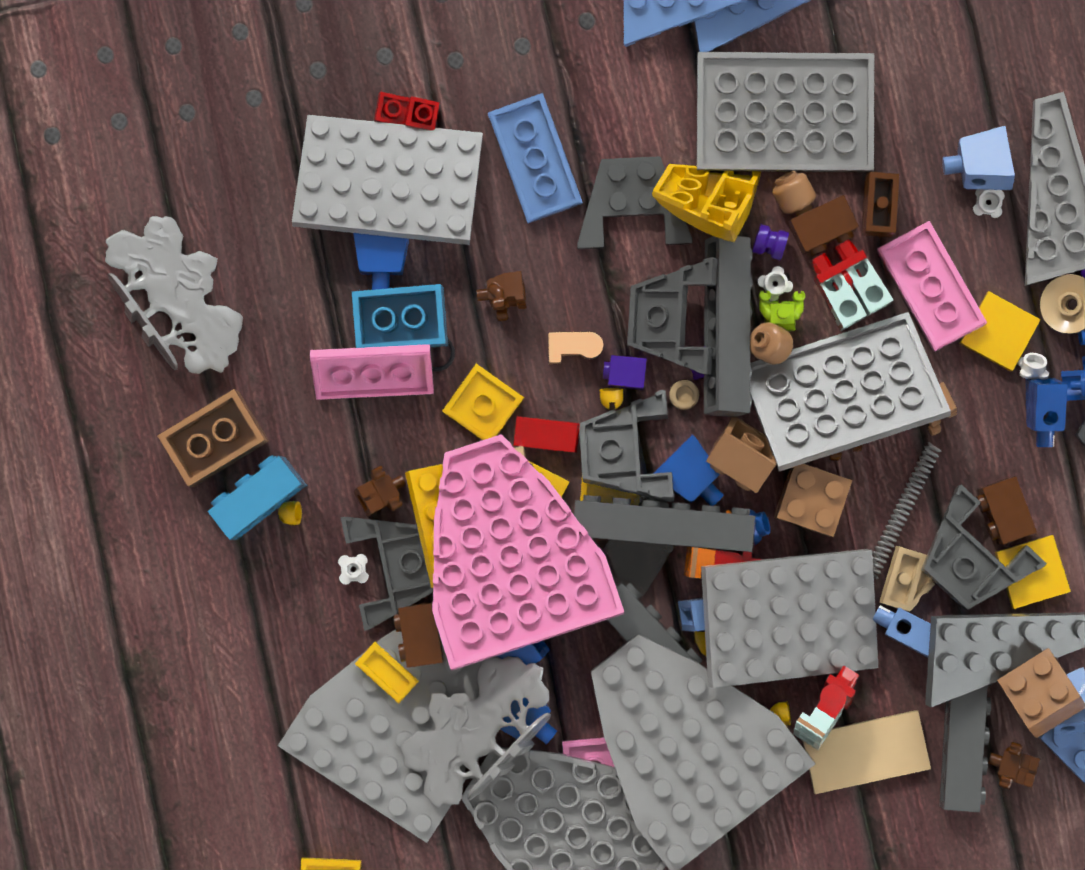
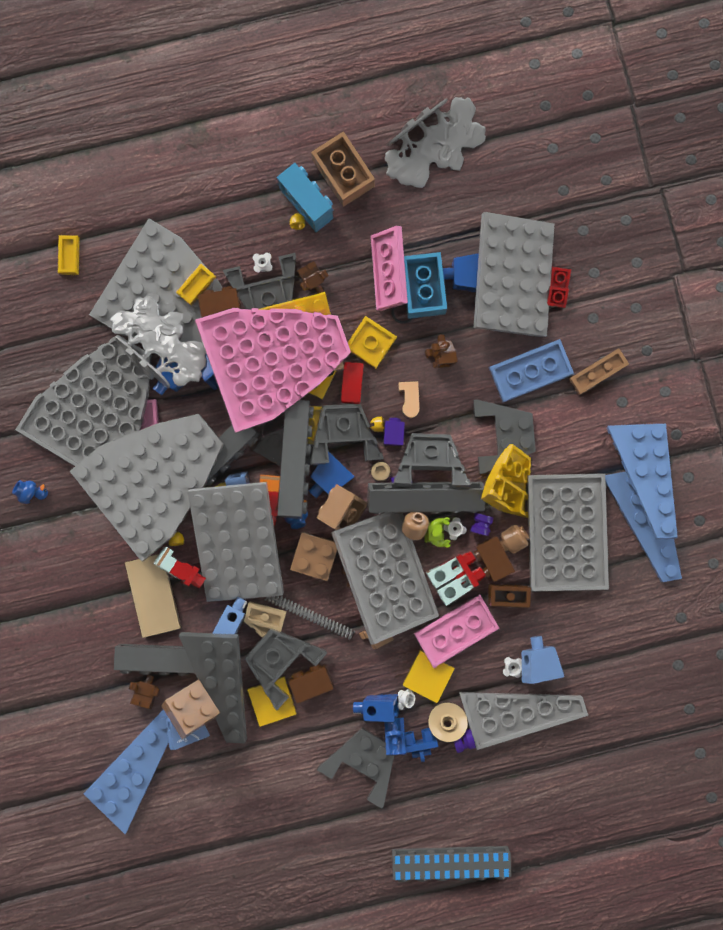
camera: 85 degrees right, 0 degrees up
(539, 55) = (599, 371): none -> medium nougat plate

